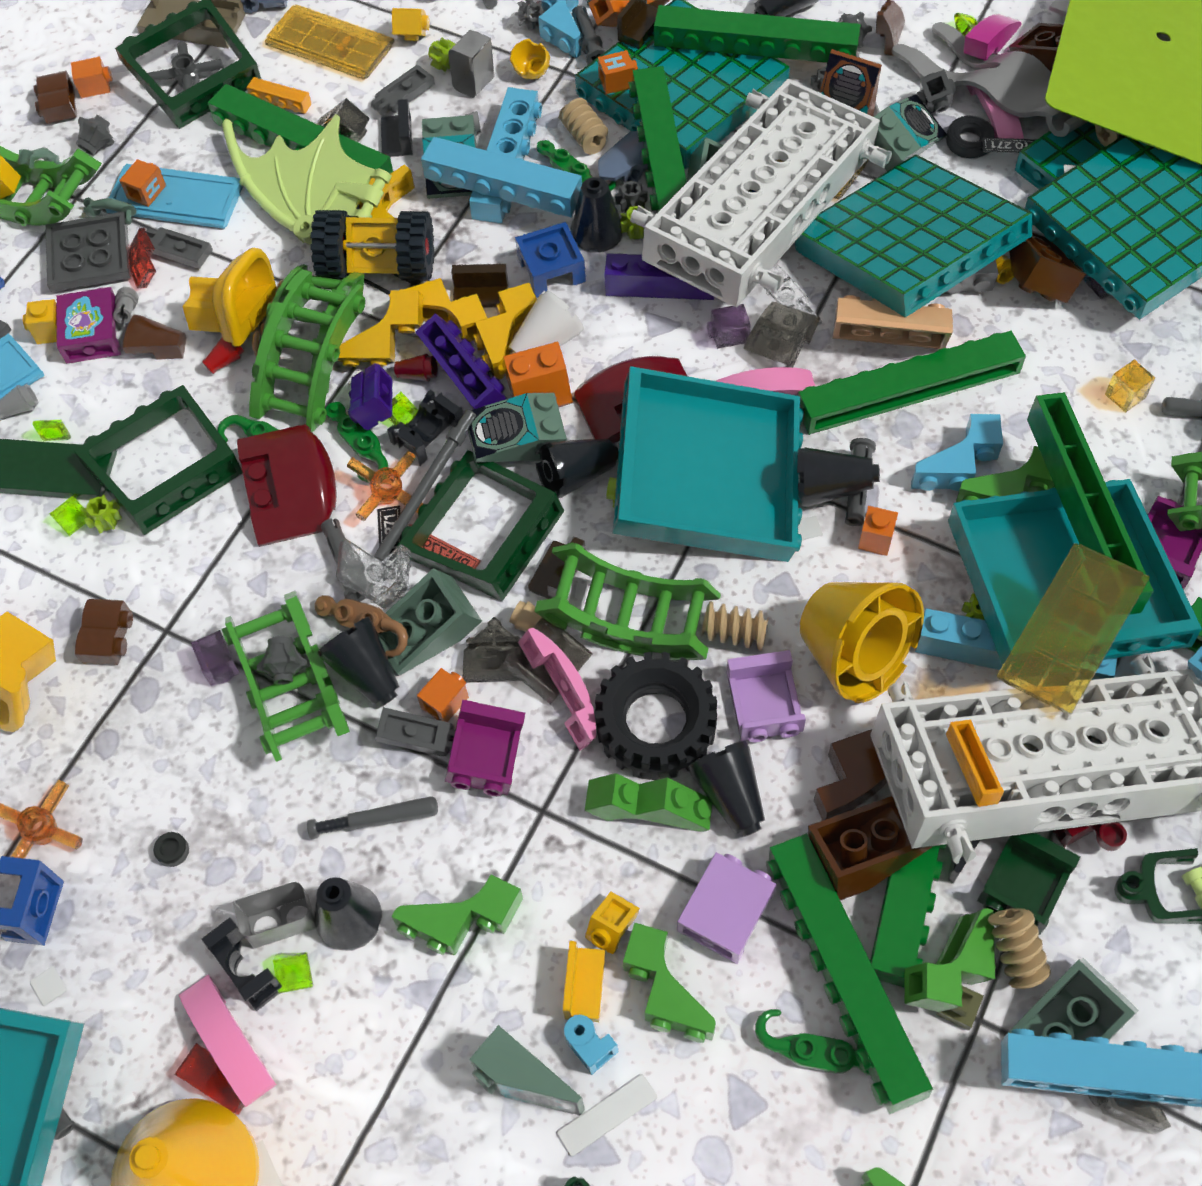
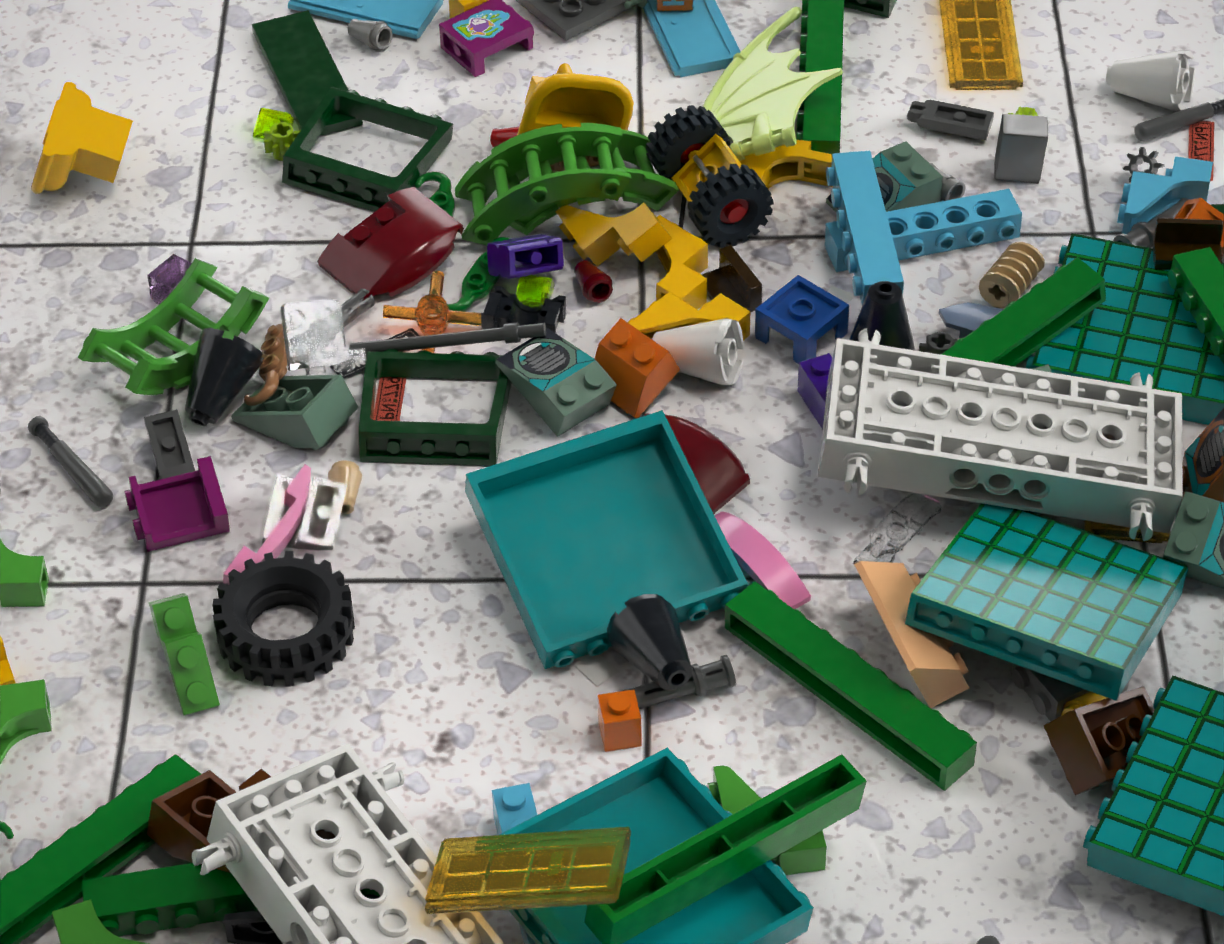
camera: 60 degrees right, 15 degrees down
(51, 430) = (354, 68): clear neon green slope -> none
(103, 631) = (160, 199): reddish brown brick -> none
(125, 303) = (529, 47): light grey pin -> none
(139, 259) = (588, 31): clear red slope -> none
(153, 337) = (503, 85): reddish brown slope -> none
(179, 247) = (622, 52): dark grey hinge -> none
(280, 95) = (872, 35): light orange piece -> none
(281, 660) = (187, 319): dark grey rock -> none
(352, 120) = (865, 94): clear smoke slope -> none
(397, 132) = (913, 131): black panel -> none
(410, 23) = (1045, 81): yellow brick -> none
(443, 695) = (226, 451): orange brick -> none
(459, 362) = (615, 295): dark purple brick -> none
(487, 653) = (287, 465): clear smoke slope -> none
(530, 59) = (1072, 193): yellow hair -> none
(549, 572) = (417, 487): dark brown panel -> none
(563, 161) = (949, 289): green piece -> none
(572, 463) = (534, 426): black cone -> none
(611, 922) = (47, 665): yellow bracket -> none
(616, 71) = (1093, 251): orange brick -> none
(619, 635) = (363, 557): bright green fence -> none
(726, 906) = (101, 748): lavender panel -> none
(729, 326) = (817, 500): clear purple brick -> none
(731, 786) = (232, 703): black cone -> none
(734, 625) = (426, 644): tan piece -> none
(764, 696) = (359, 702): lavender panel -> none
(781, 333) = (831, 539): clear smoke slope -> none
(862, 634) = (437, 758): yellow cone -> none
(957, 462) = (759, 760): medium azure arch -> none
(974, 763) = (302, 824): light orange piece -> none
(1130, 385) = (982, 891): clear yellow brick -> none

